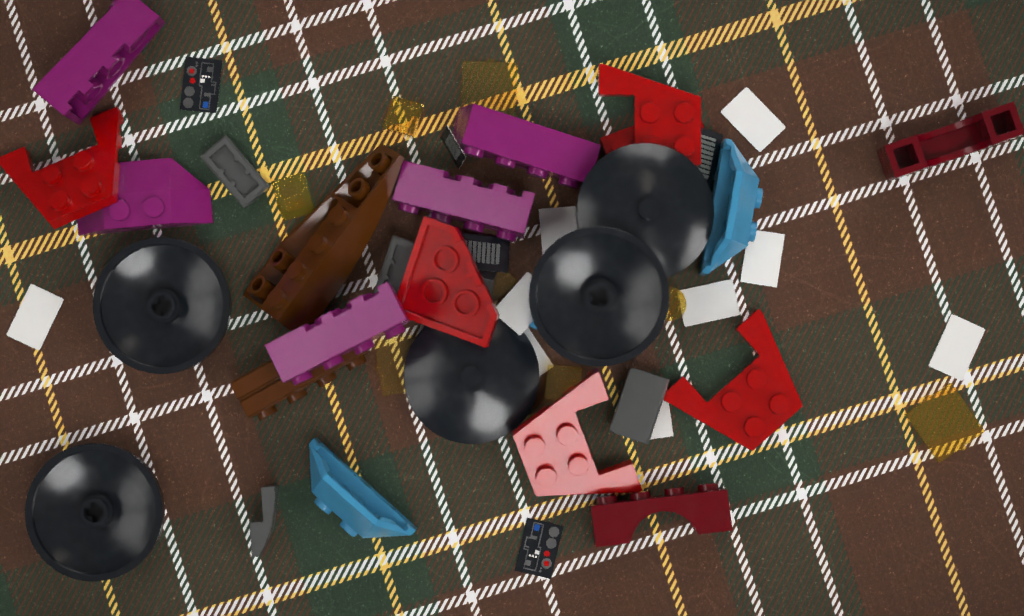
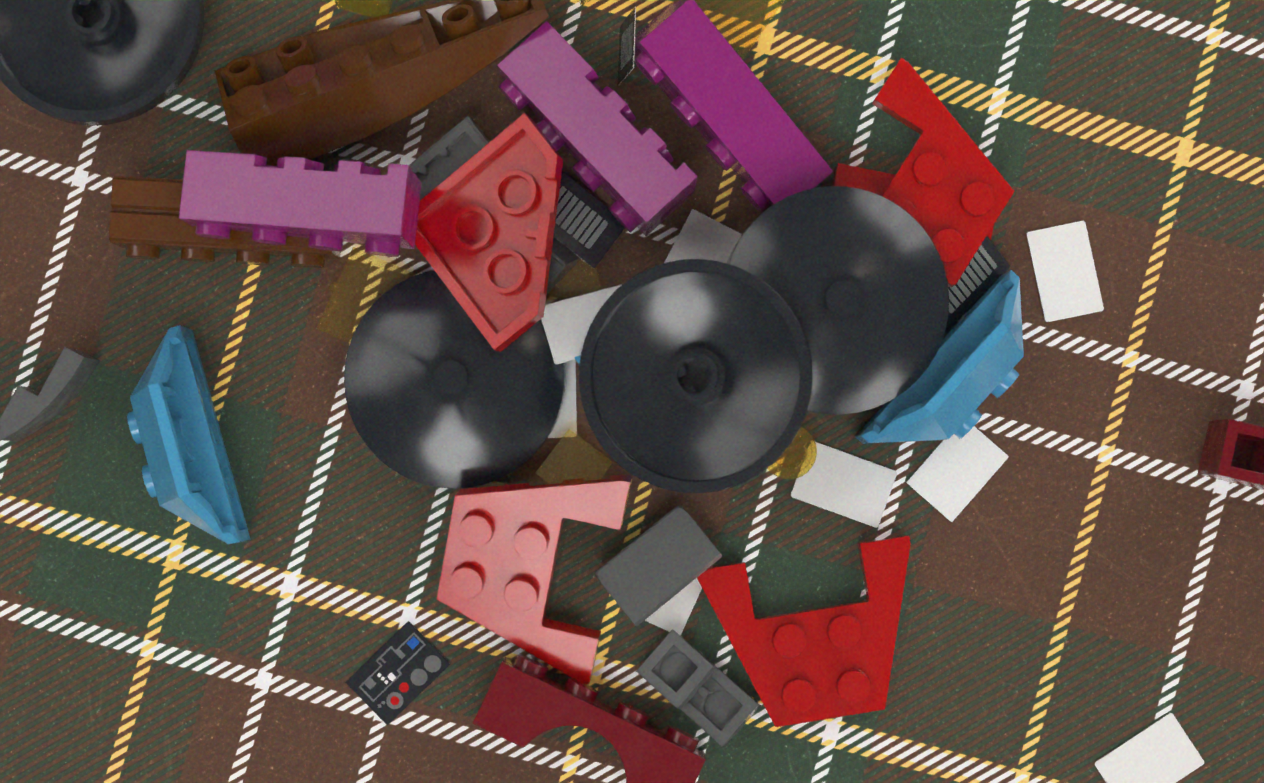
camera: 35 degrees right, 0 degrees up
(700, 456) = (698, 688): none -> dark grey slope

